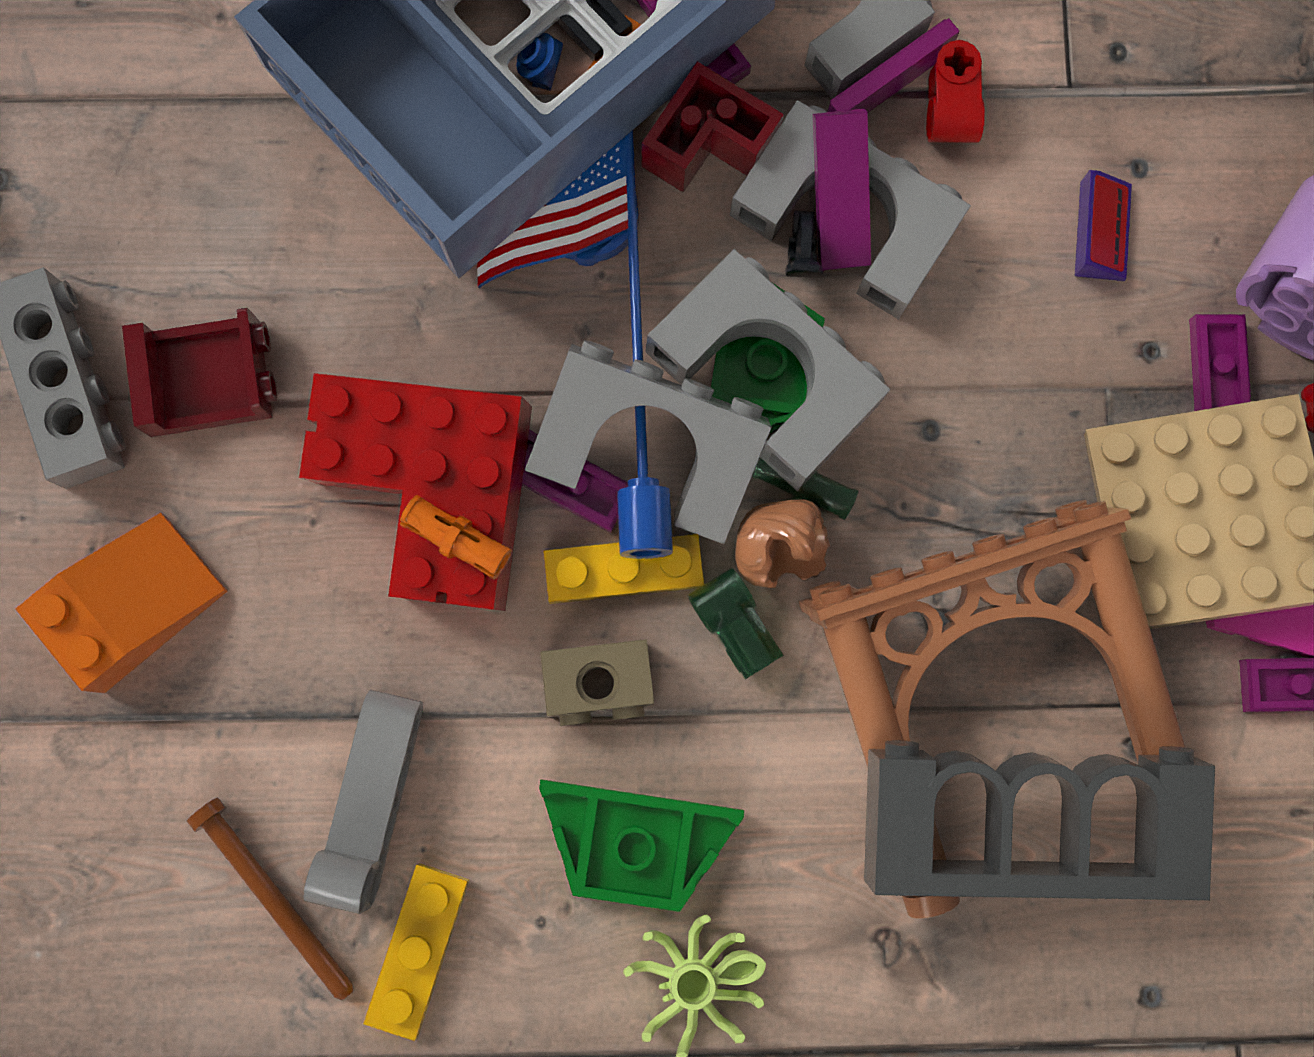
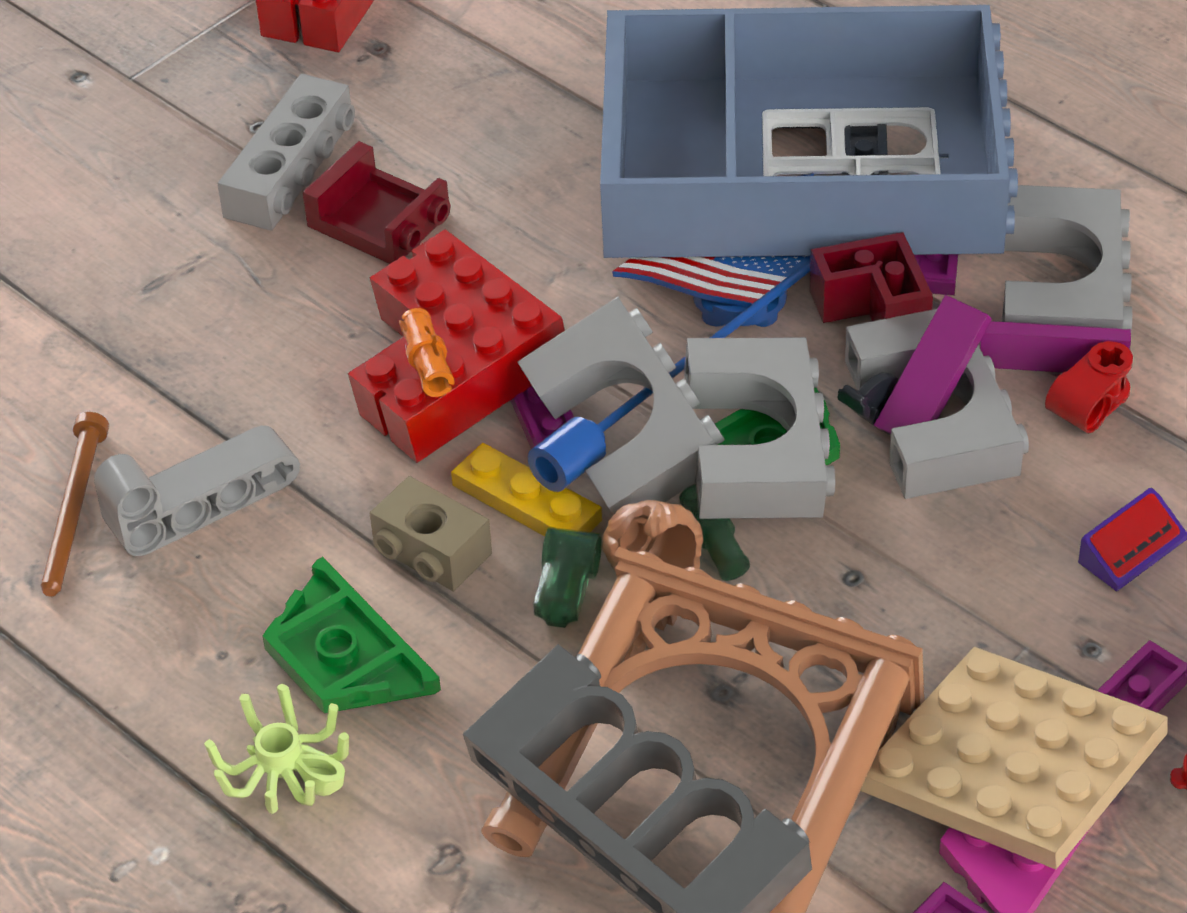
camera: 50 degrees right, 35 degrees down
(121, 603) = (180, 284): orange slope -> none
(416, 951) = (123, 602): yellow plate -> none

